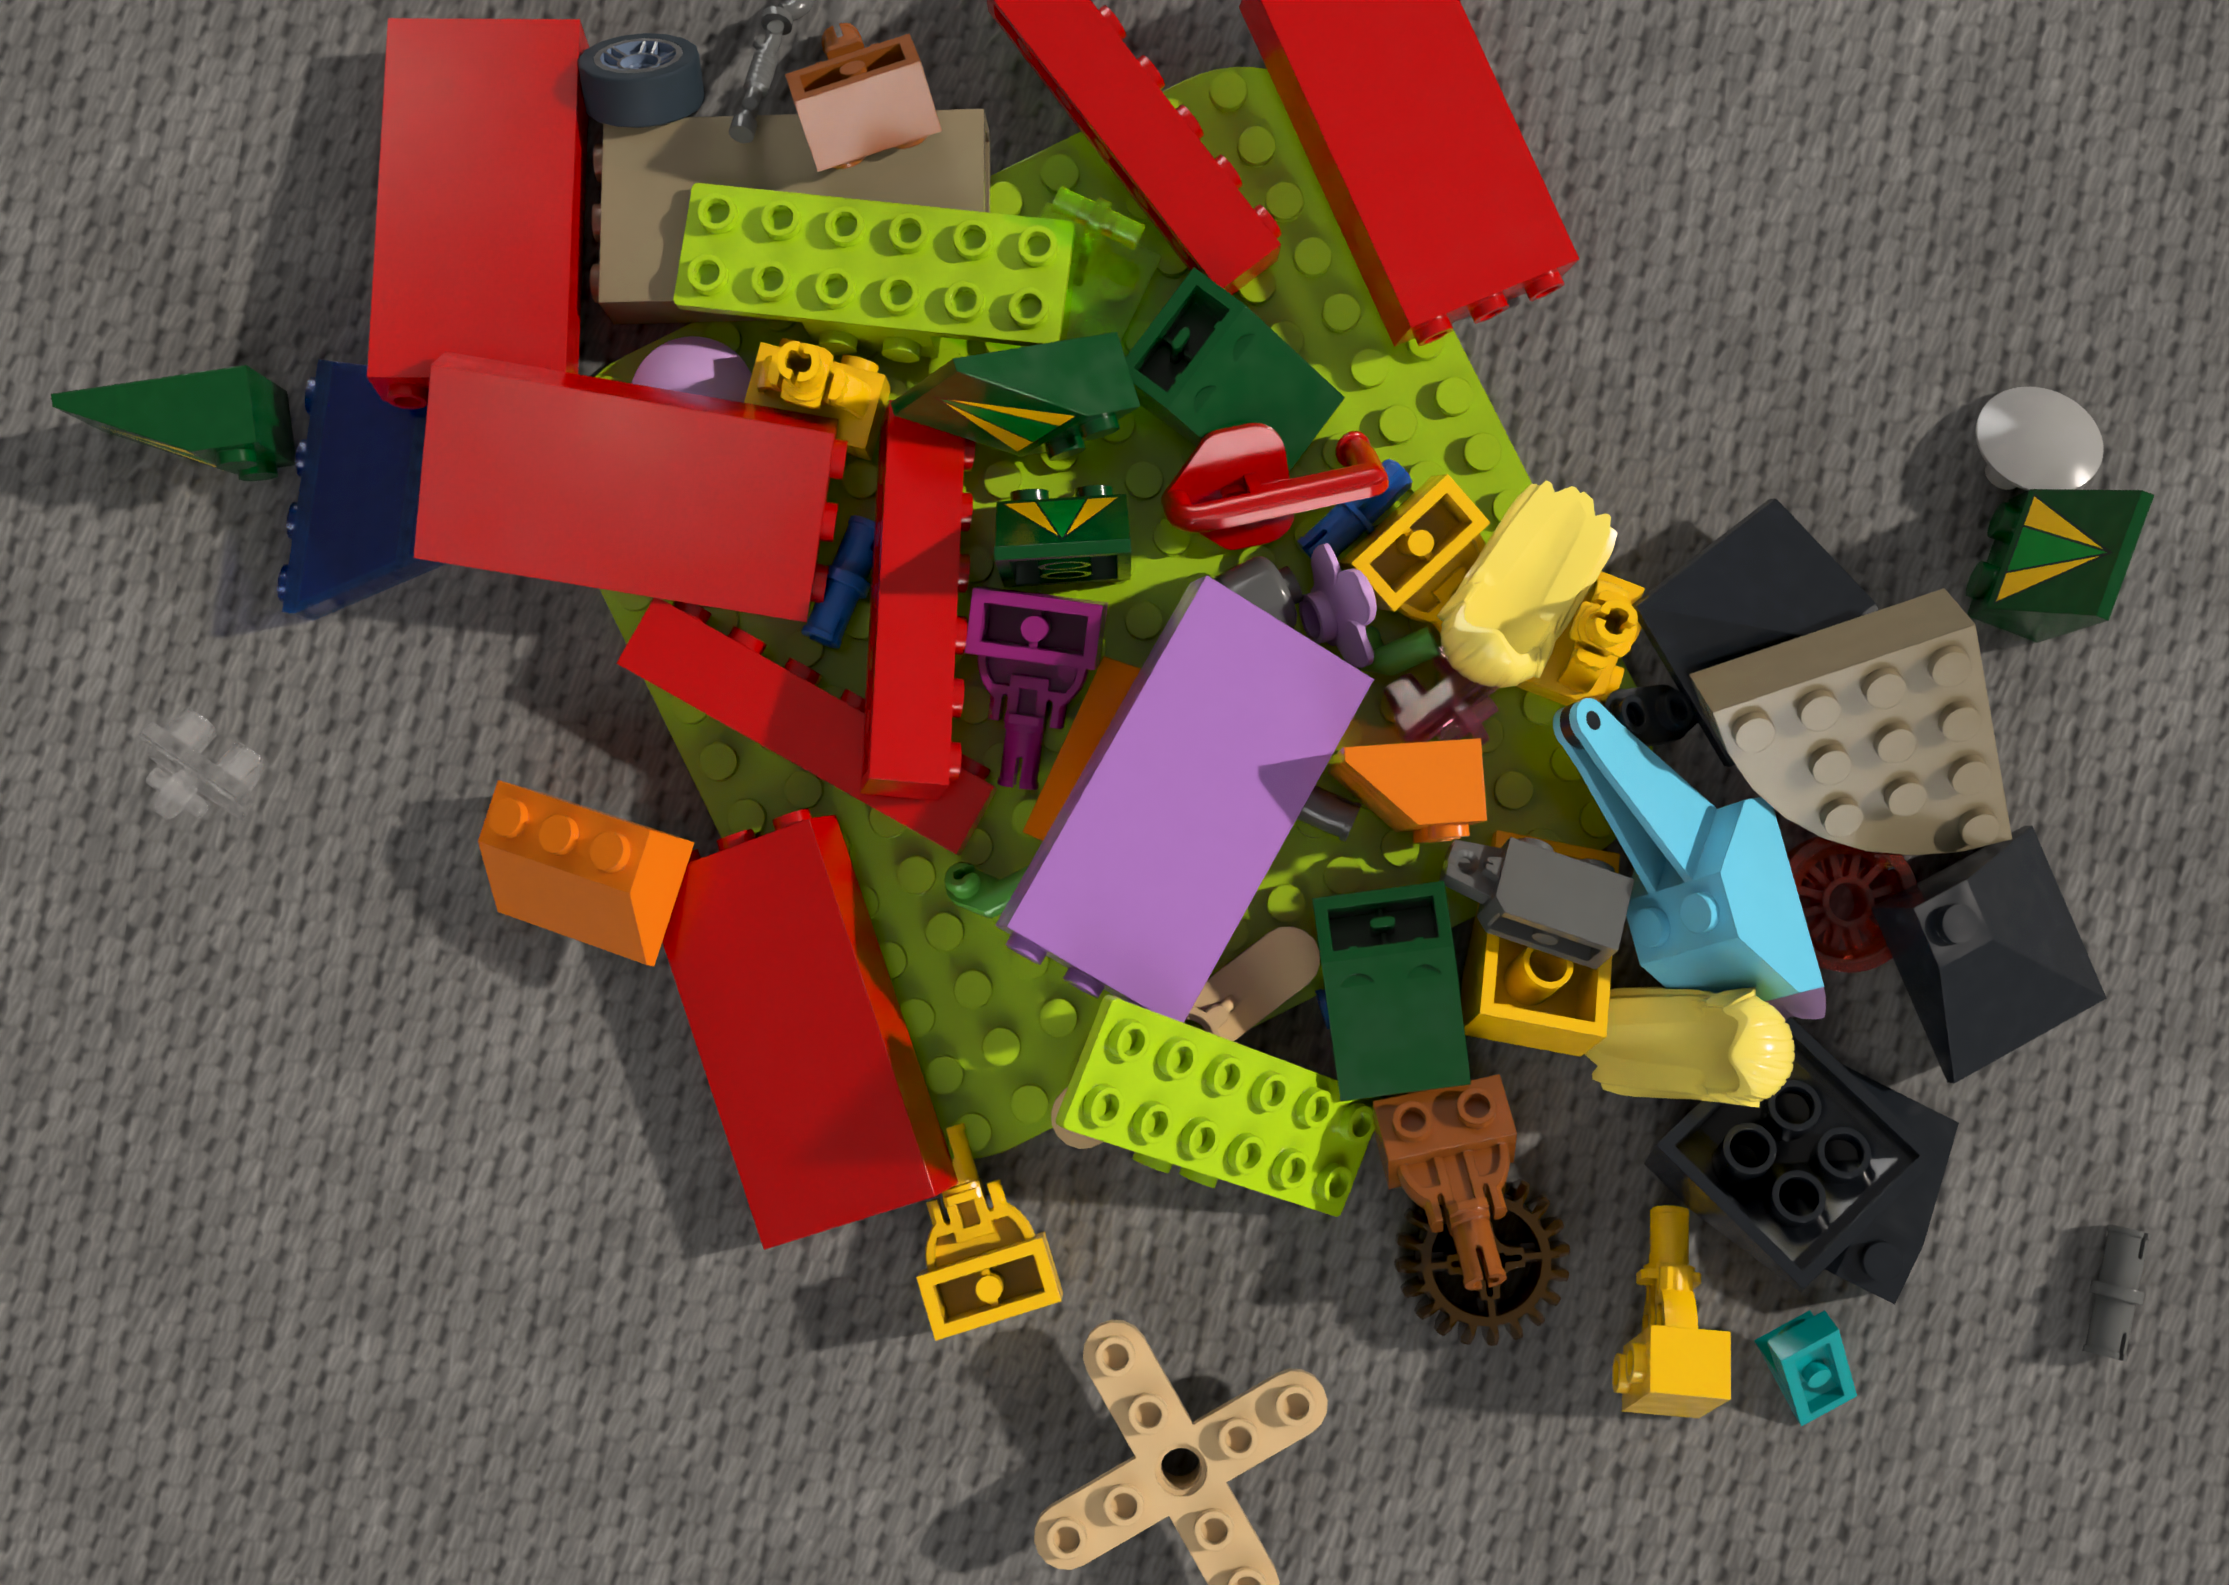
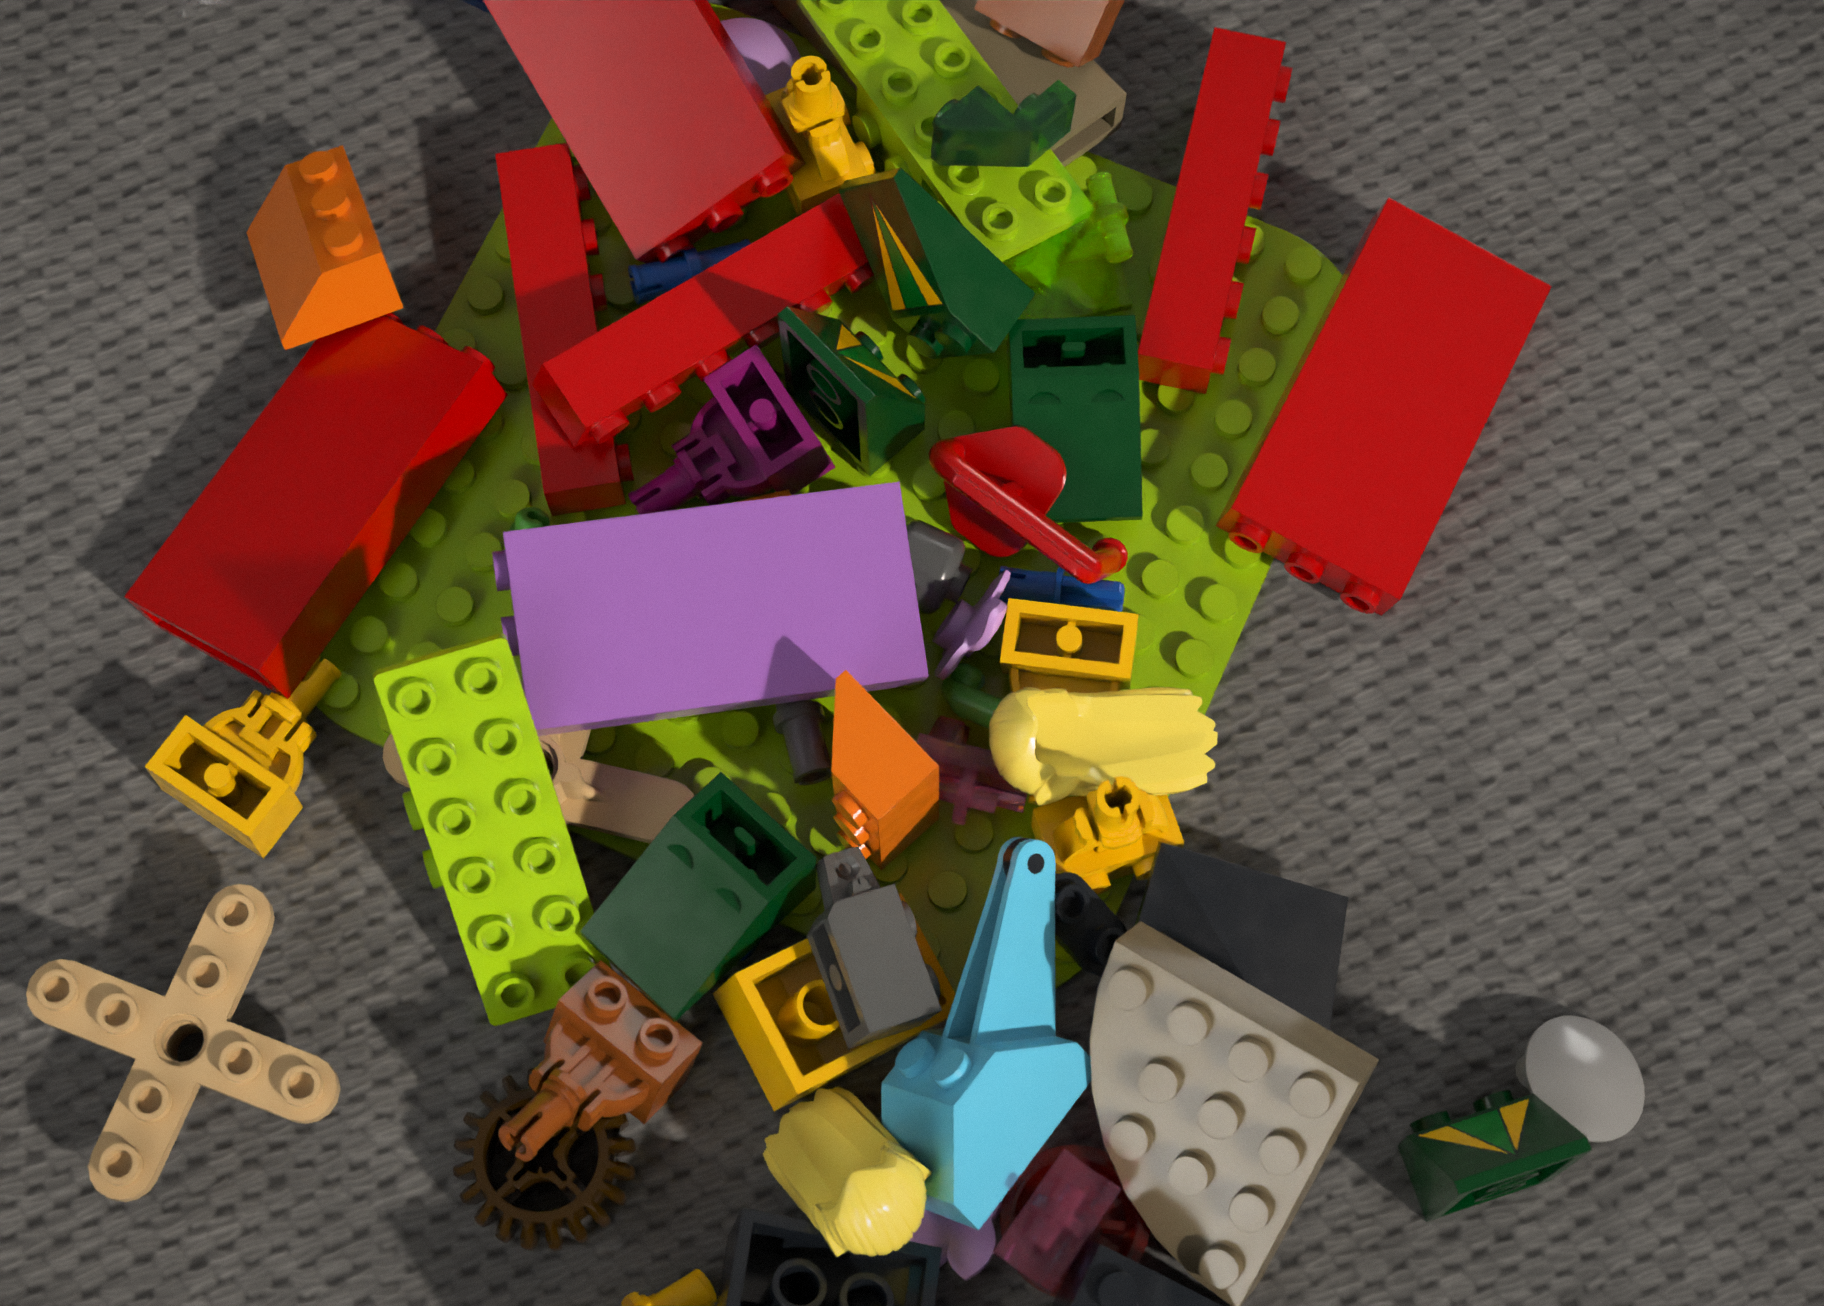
camera: 50 degrees right, 15 degrees down
(952, 254) = (987, 134): none -> clear green slope
(1855, 920) = (1056, 1221): none -> clear pink hips

